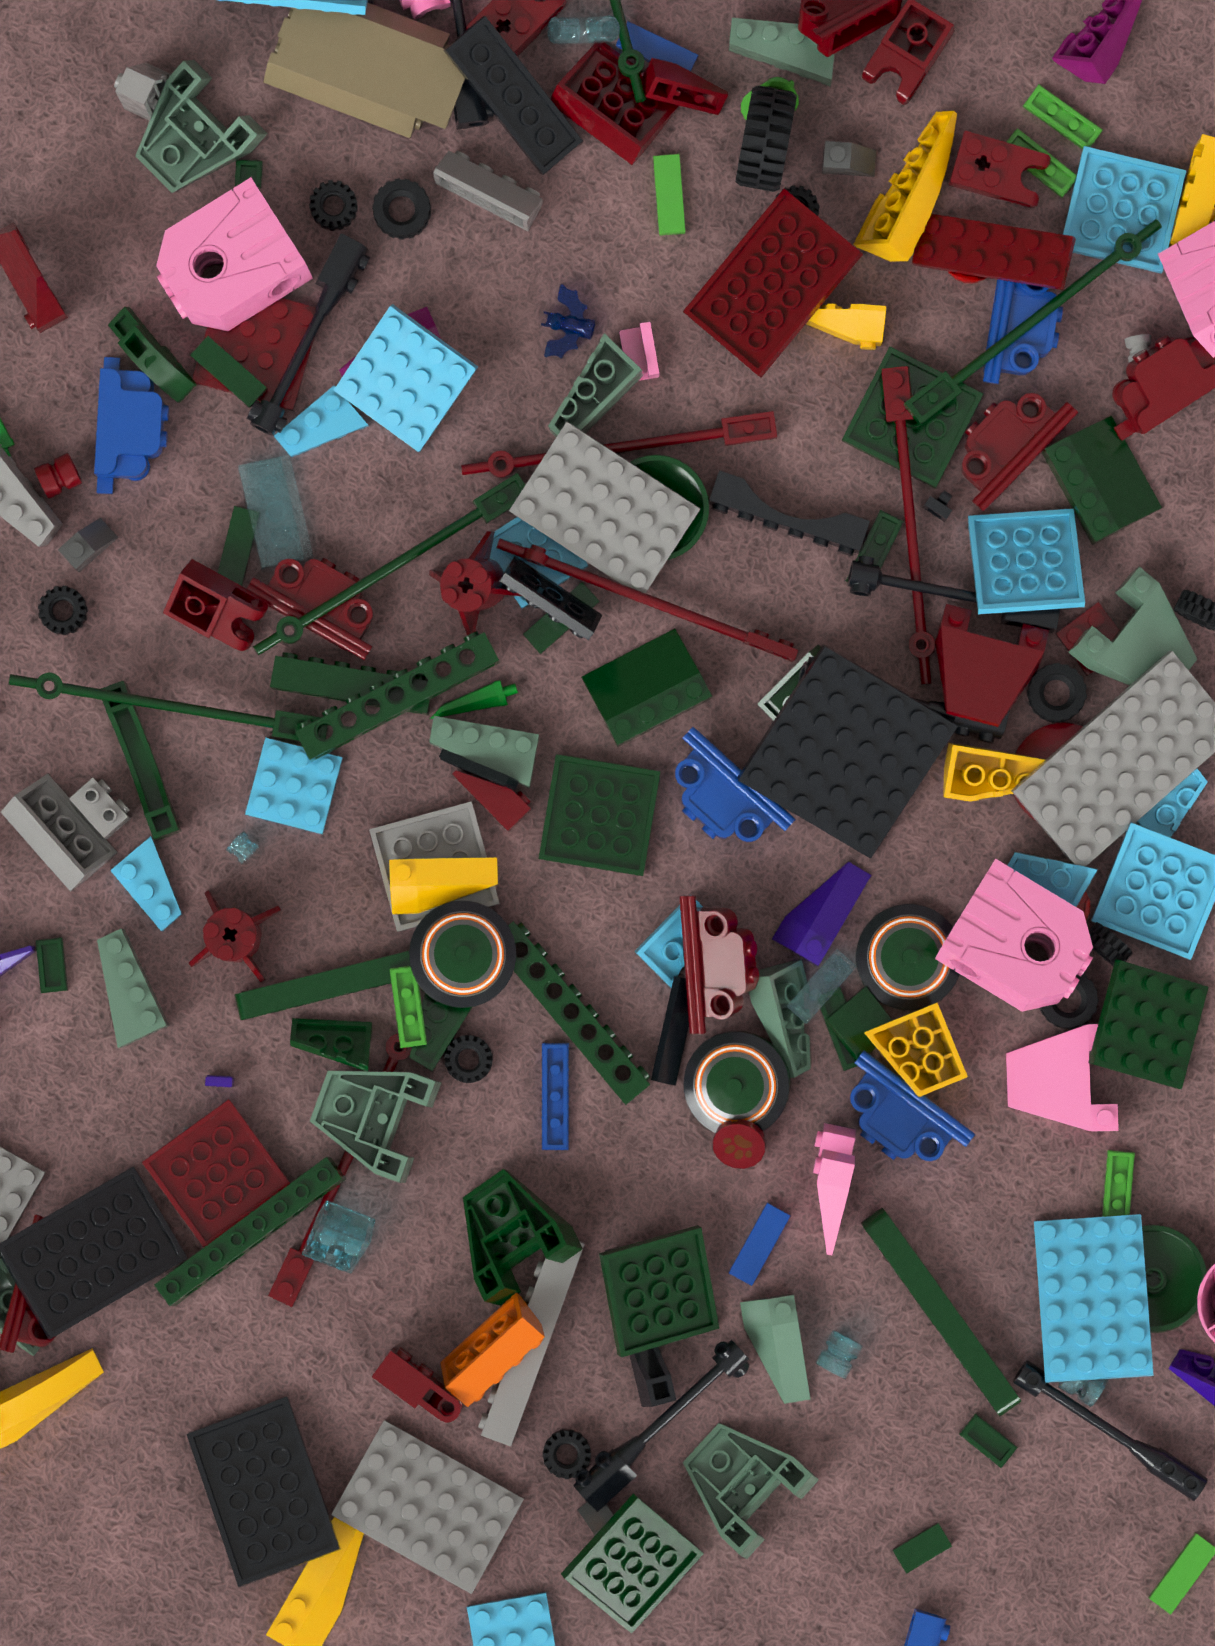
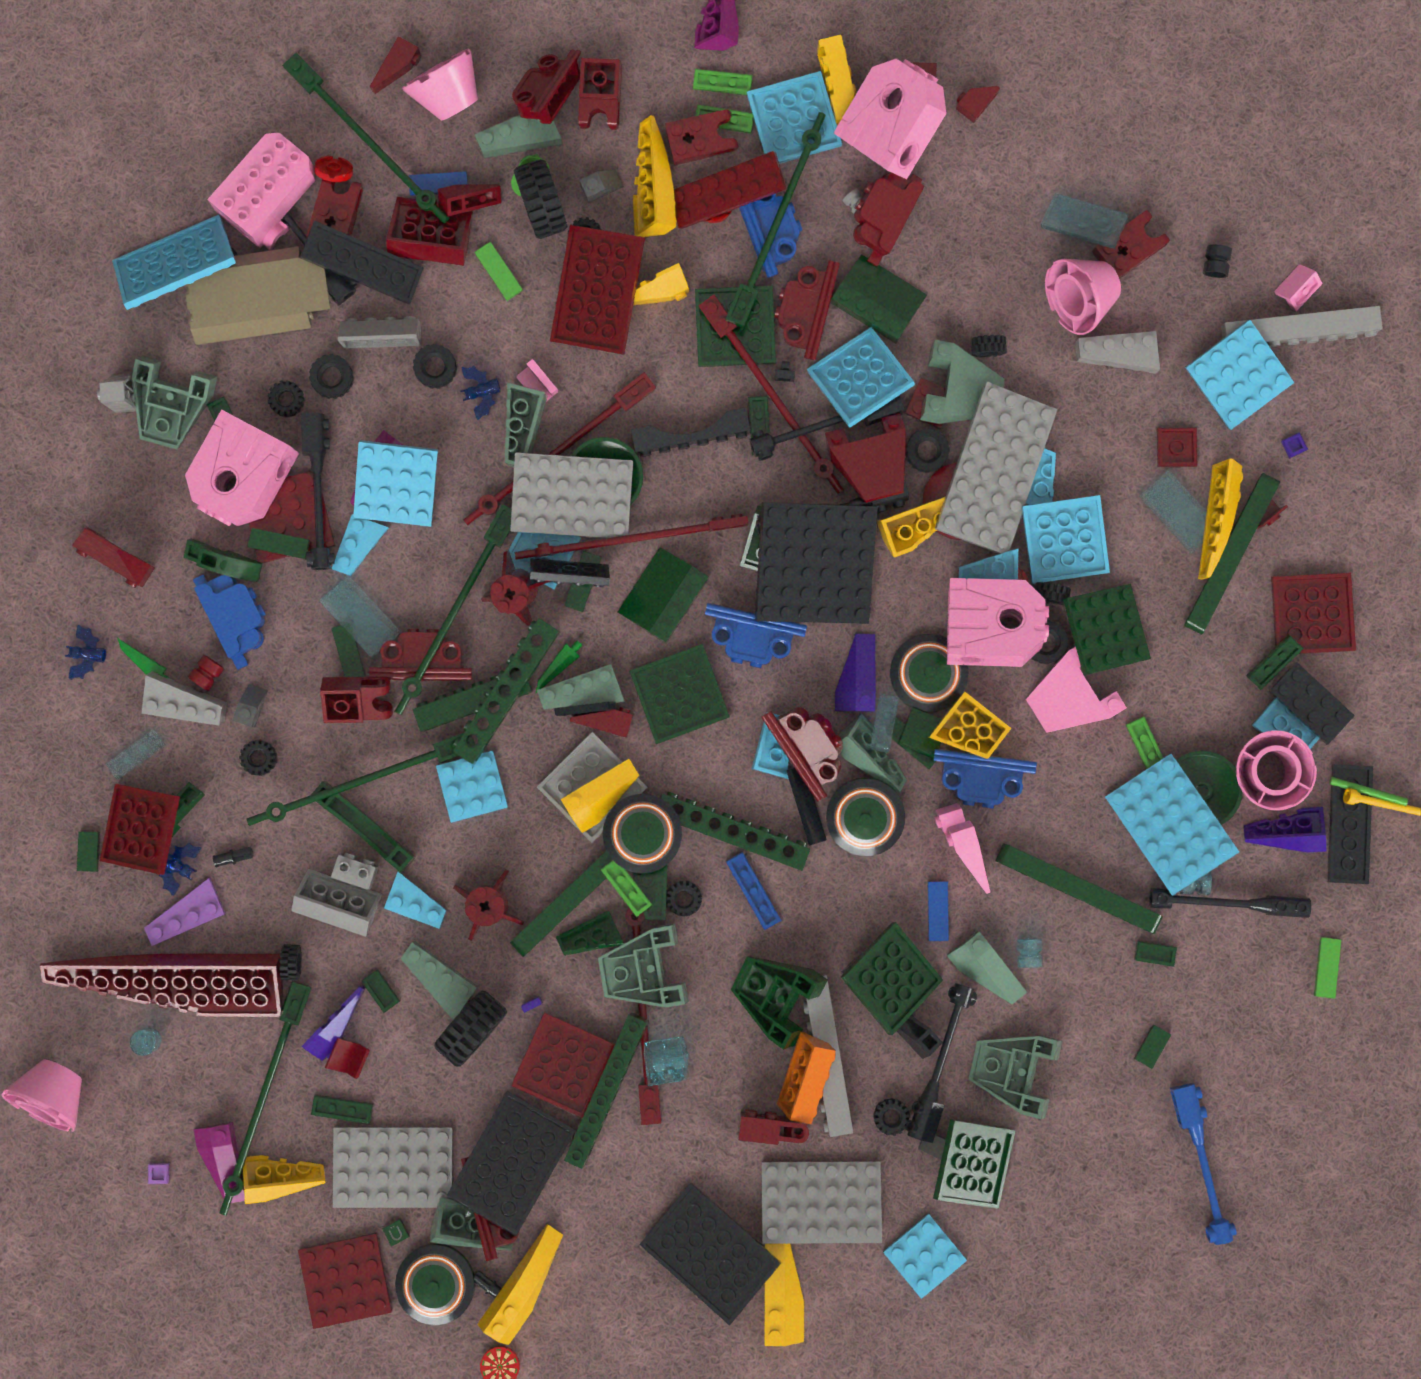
camera: 30 degrees left, 0 degrees up
(132, 1067) = (470, 1028): none -> black tyre
(242, 847) = (461, 845): clear light blue wheel -> none
(525, 245) = (427, 353): none -> black tyre
(583, 29) = (383, 196): clear light blue cylinder -> none
(739, 1144) = (889, 854): dark red tile -> none

